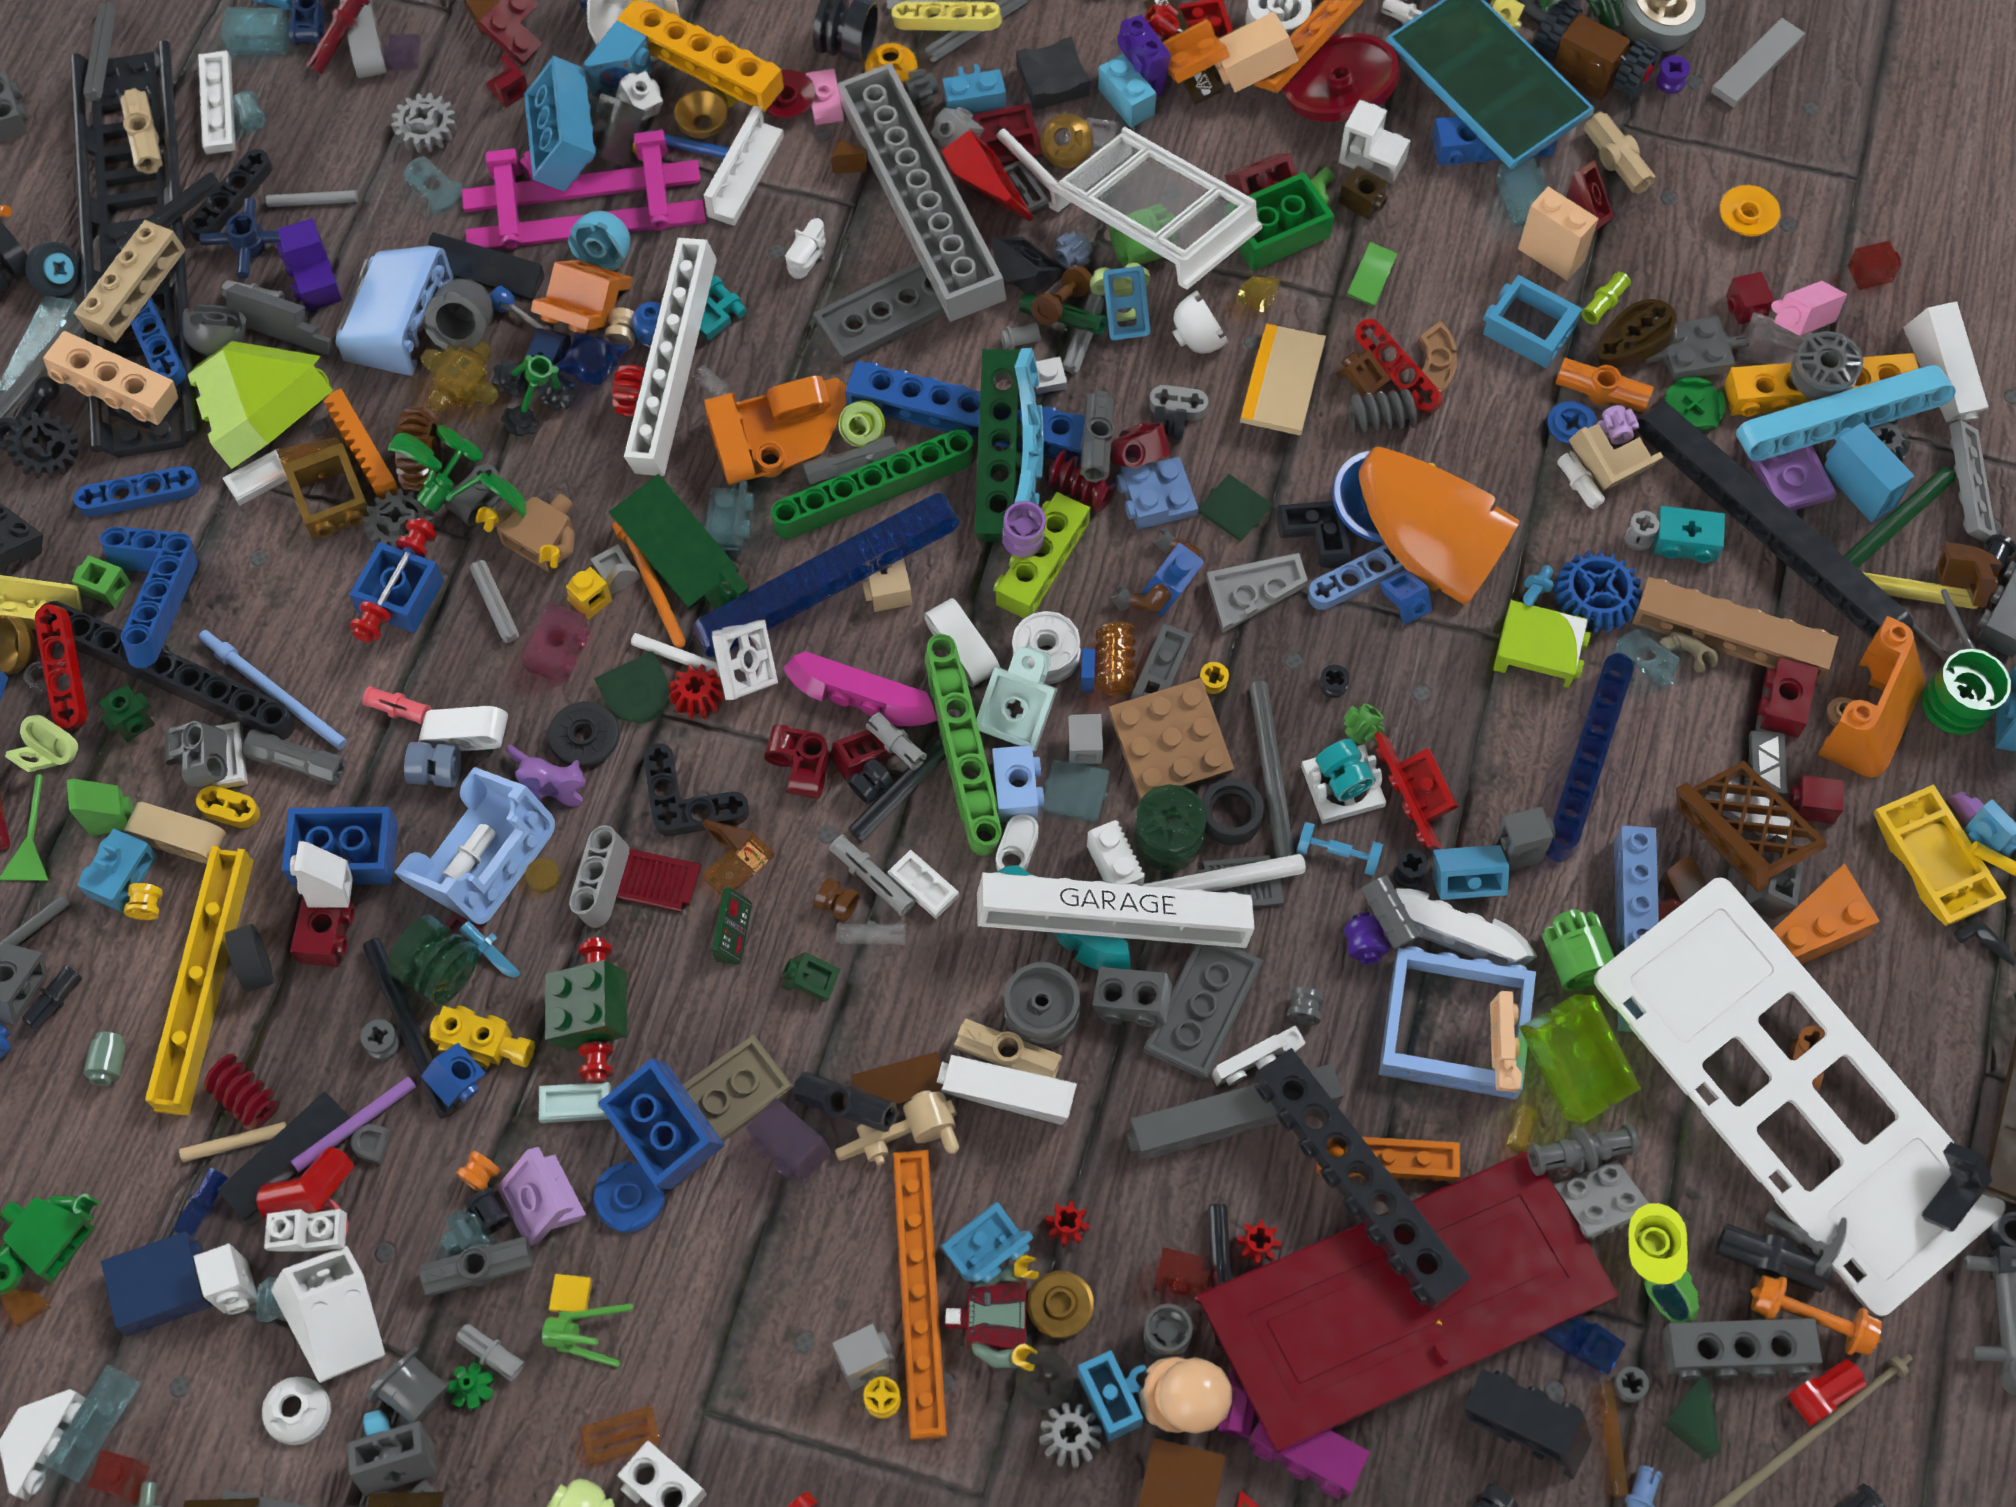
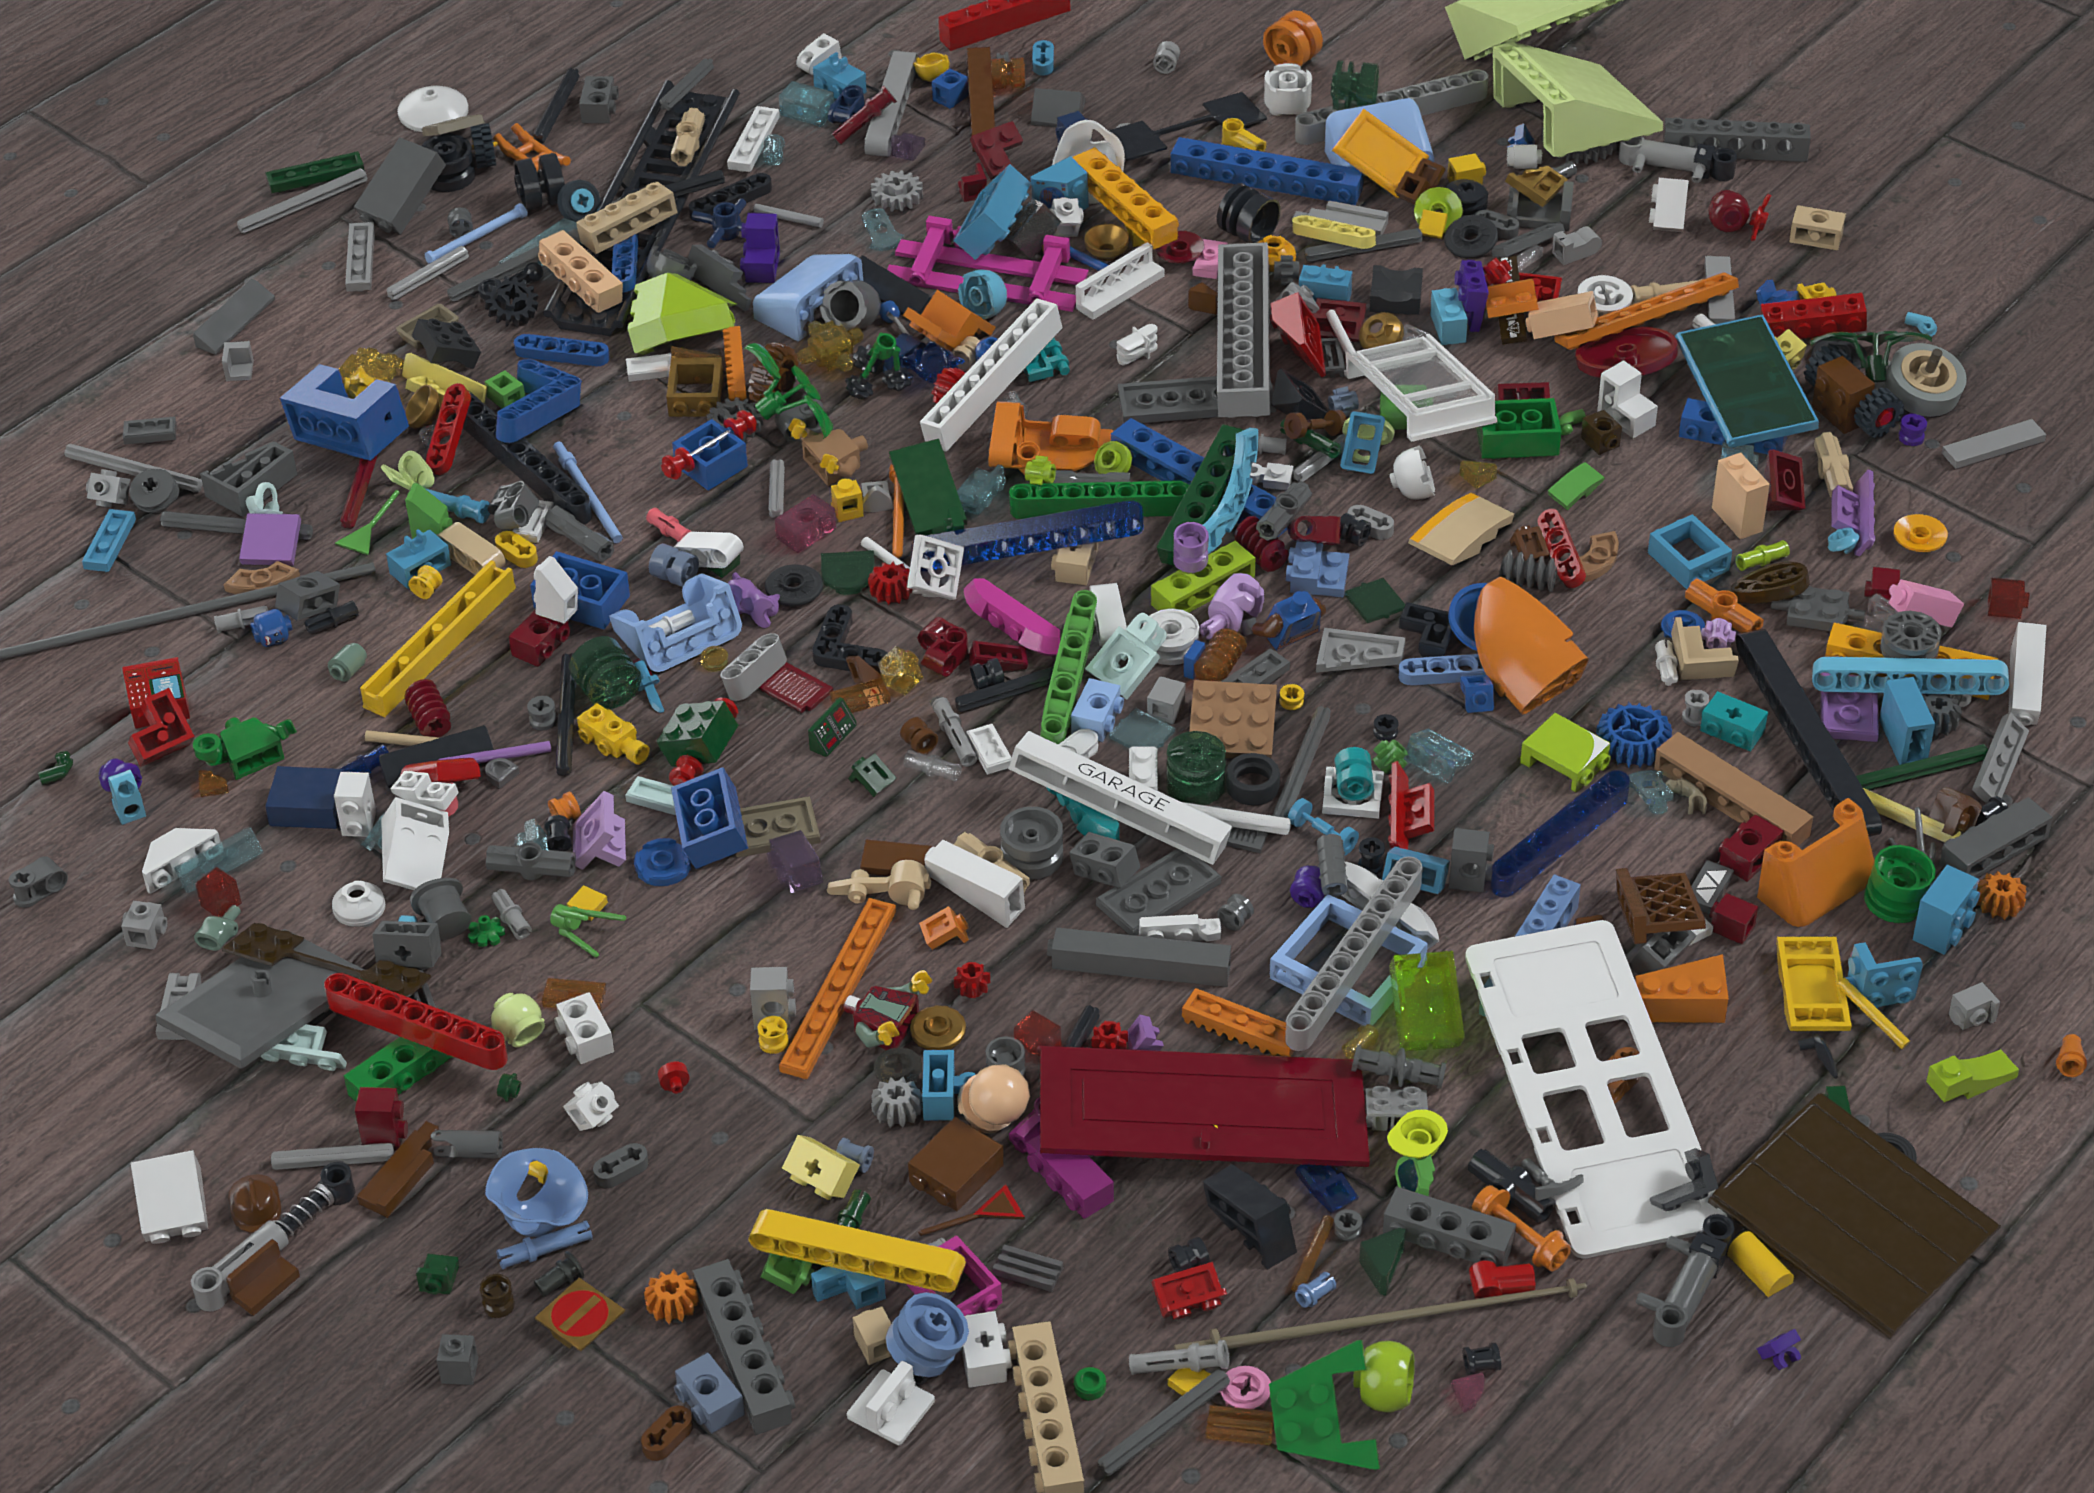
camera: 25 degrees right, 20 degrees down
(126, 712) = (475, 466): dark green brick -> none
(131, 770) = (464, 506): none -> dark azure pin
(249, 958) = (478, 632): black tyre -> none
(454, 1075) = (580, 744): blue brick -> none
(771, 816) = (900, 670): none -> clear yellow brick
(794, 476) = (1040, 471): none -> lime gear
(861, 1105) = (850, 849): black piece -> none
(896, 741) = (1020, 654): light grey pin -> none
(985, 1244) = (899, 967): dark azure bracket -> none
(999, 1162) = (943, 927): none -> orange bracket
(1096, 584) = (1230, 601): none -> lavender piece
(1291, 1072) = (1206, 1015): black brick -> none
(1291, 1224) = (1143, 1035): none -> medium lavender tile
(1409, 698) = (1436, 754): none -> clear light blue bracket
(1471, 1040) = (1353, 954): none -> light grey beam
(1504, 1043) = (1371, 969): light nougat hinge -> none
(1538, 584) = (1587, 715): dark azure piece -> none
(1577, 948) = (1469, 930): bright green gear -> none
(1673, 206) = (1856, 511): none -> medium lavender bracket
(1676, 247) = (1843, 539): none -> medium azure hat
(1697, 402) = (1797, 645): green tile -> none

